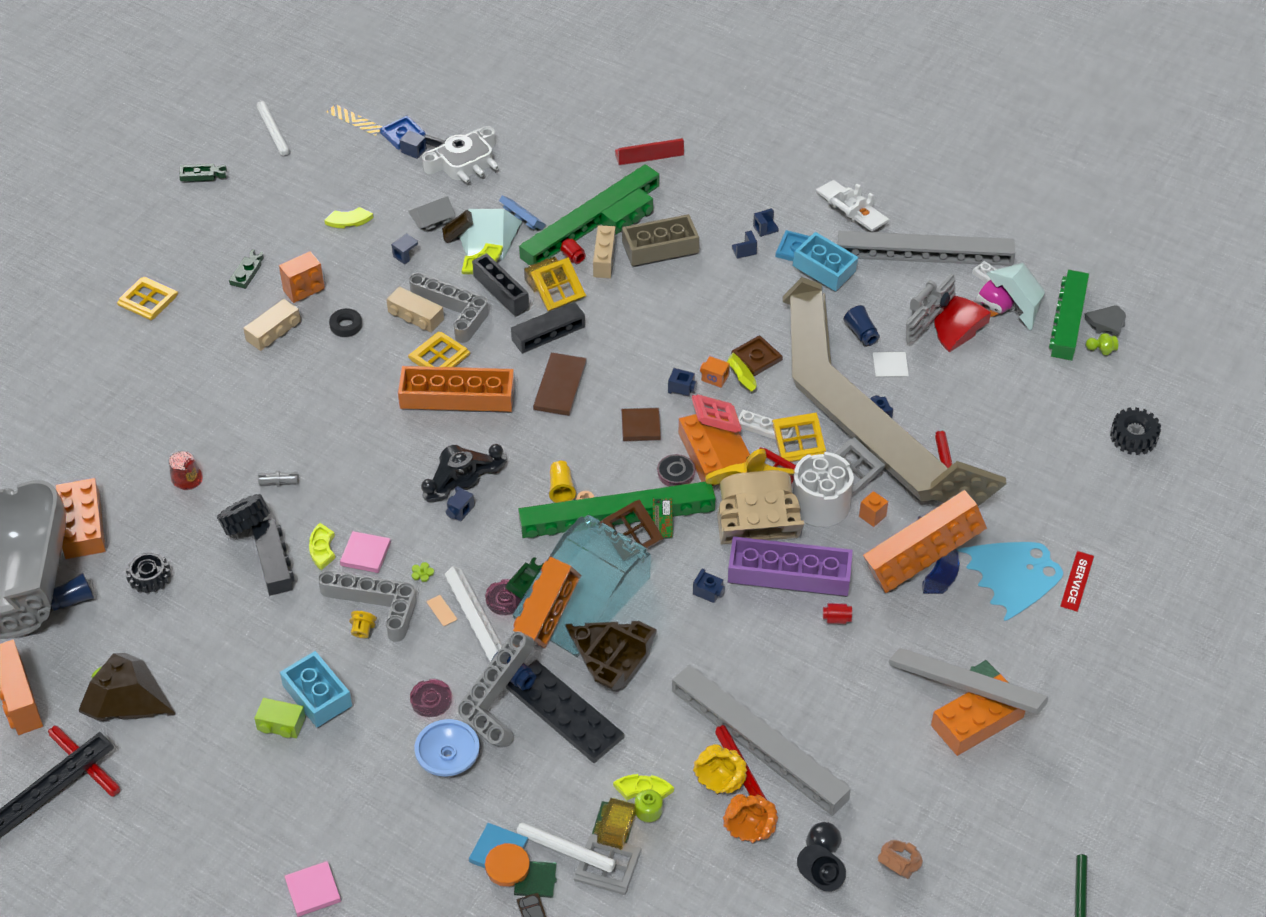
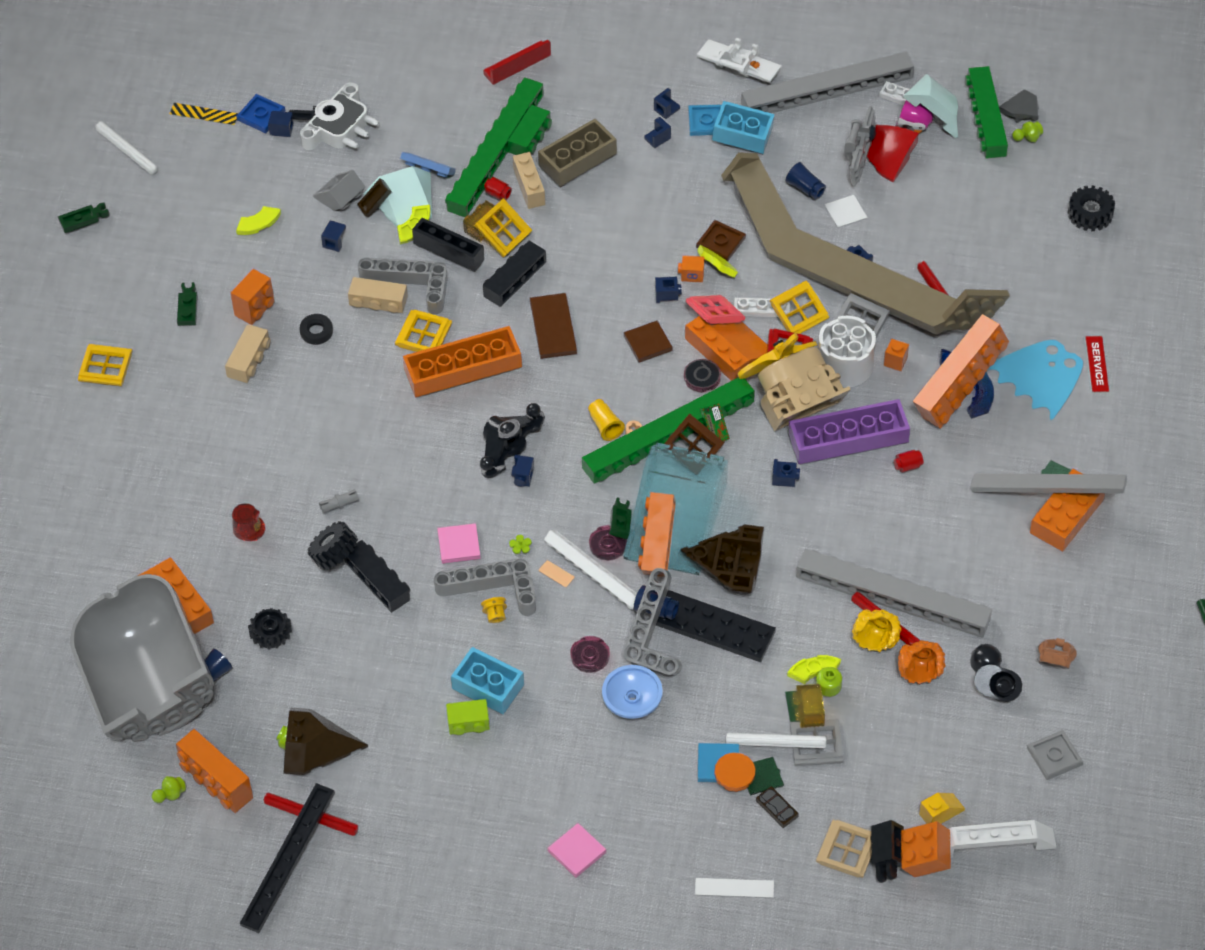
camera: 20 degrees left, 5 degrees up
(320, 546) = (413, 552): neon yellow tile -> none

